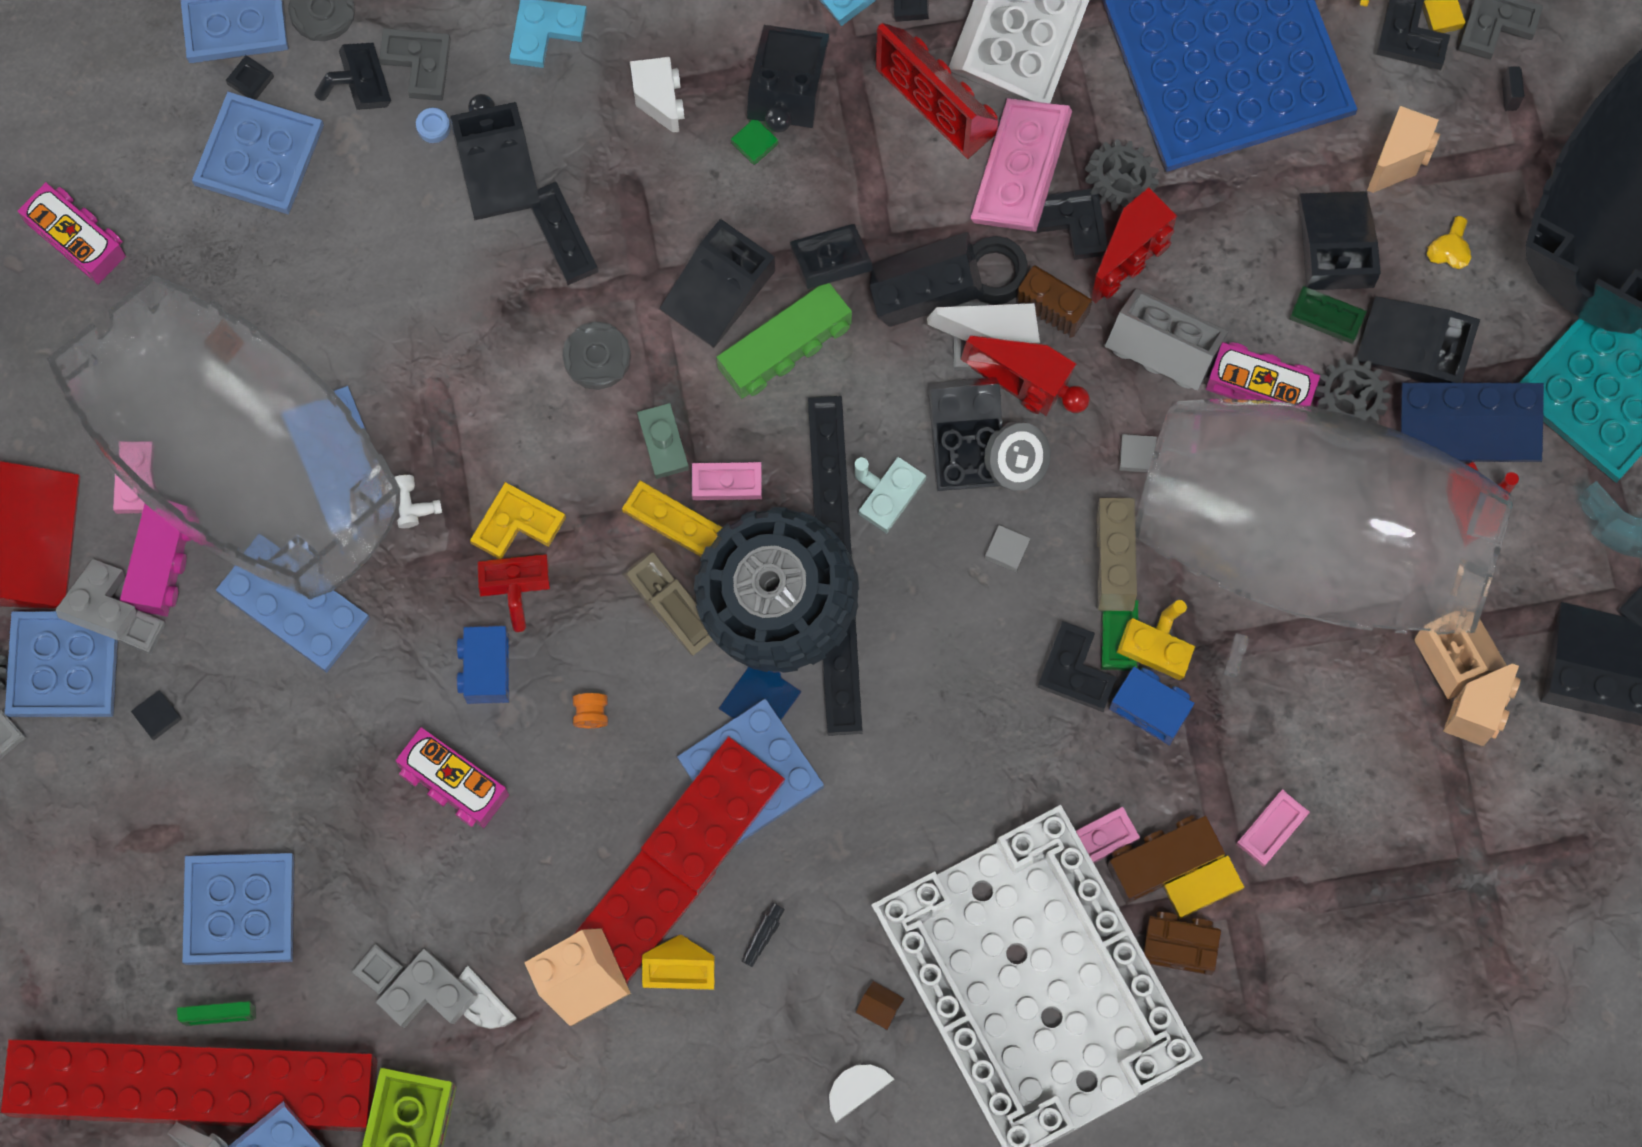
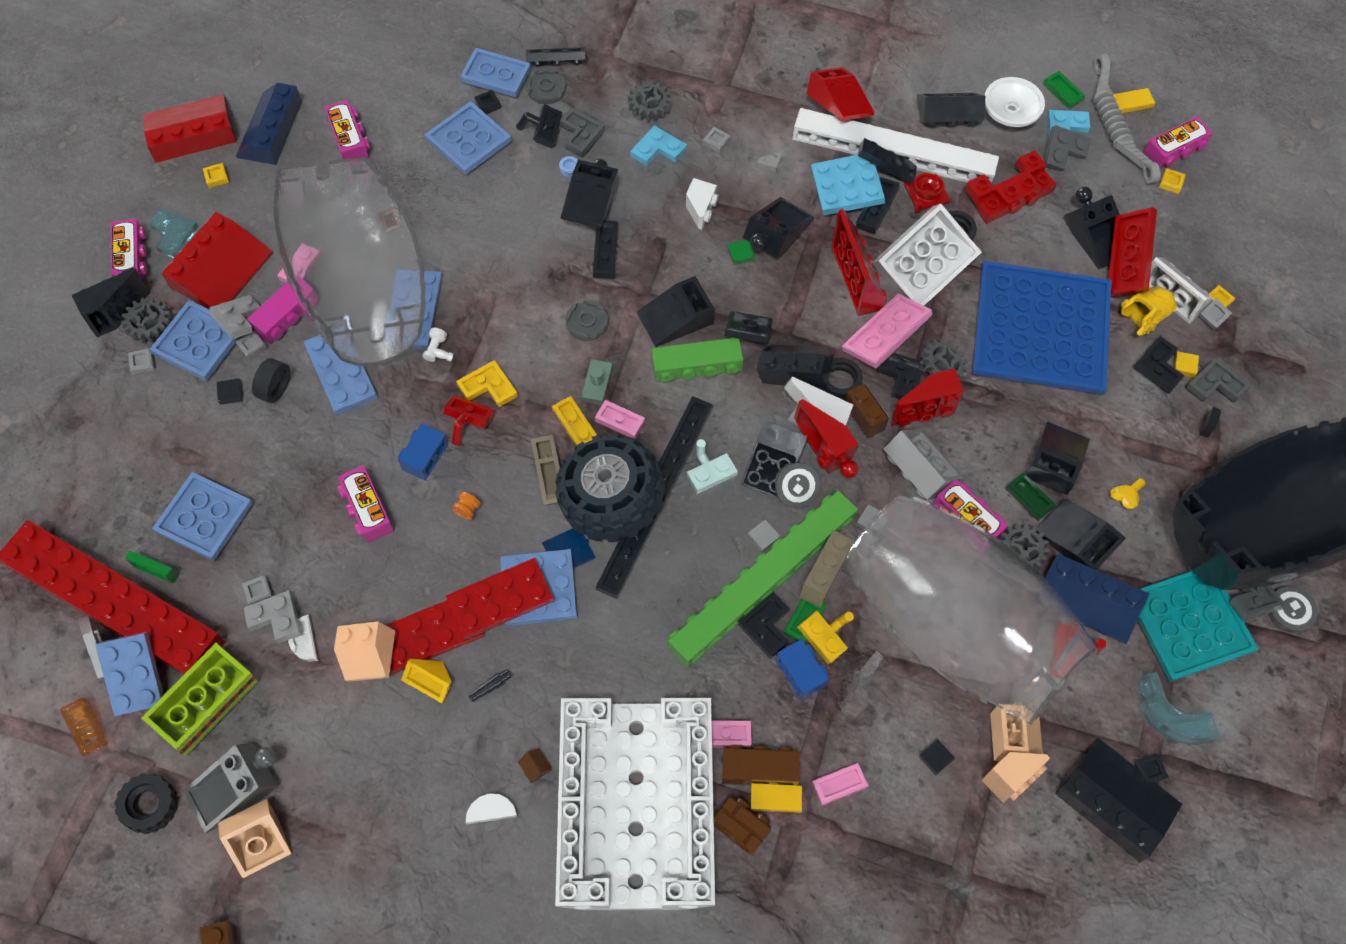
camera: 25 degrees right, 10 degrees down
(212, 672) = (270, 380): none -> black tyre
(1039, 608) = (761, 579): none -> bright green brick
(1375, 731) = (936, 757): none -> black tile
(1405, 149) = (1124, 423): light nougat slope -> none

